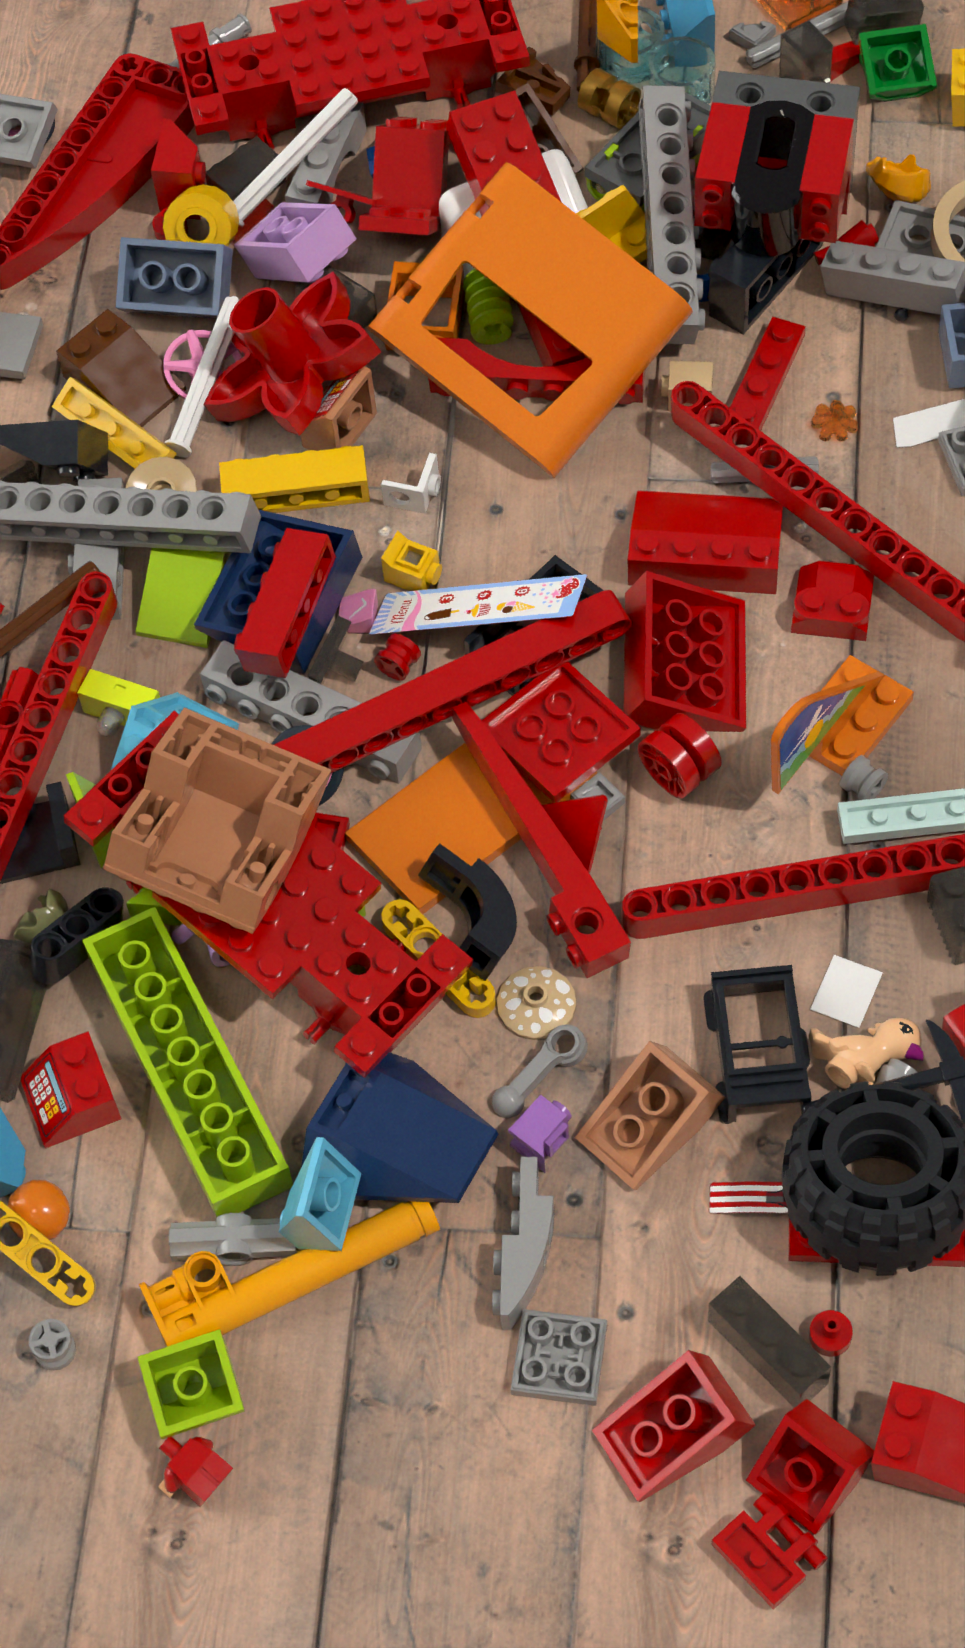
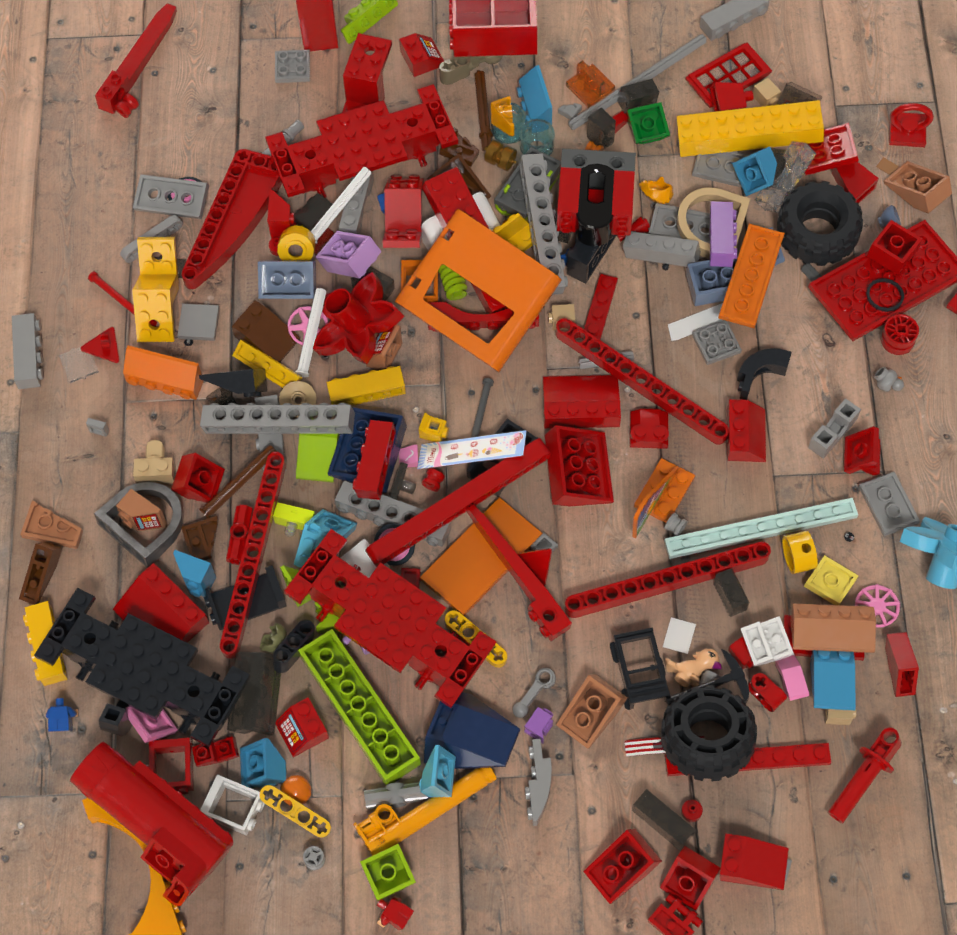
camera: 10 degrees left, 5 degrees up
(217, 820) = (363, 587): nougat slope -> none
(343, 199) = (370, 225): red piece -> none
(419, 495) = (431, 391): white bracket -> none
(483, 902) = (495, 608): black arch -> none
(528, 494) = (487, 383): none -> dark grey bar
(530, 1017) = (527, 665): tan dish -> none
(559, 1357) = (562, 836): light grey tile -> none
(560, 730) = (521, 513): red plate -> none
(679, 755) = (583, 521): red wheel -> none
(835, 420) = (638, 328): clear orange plant -> none

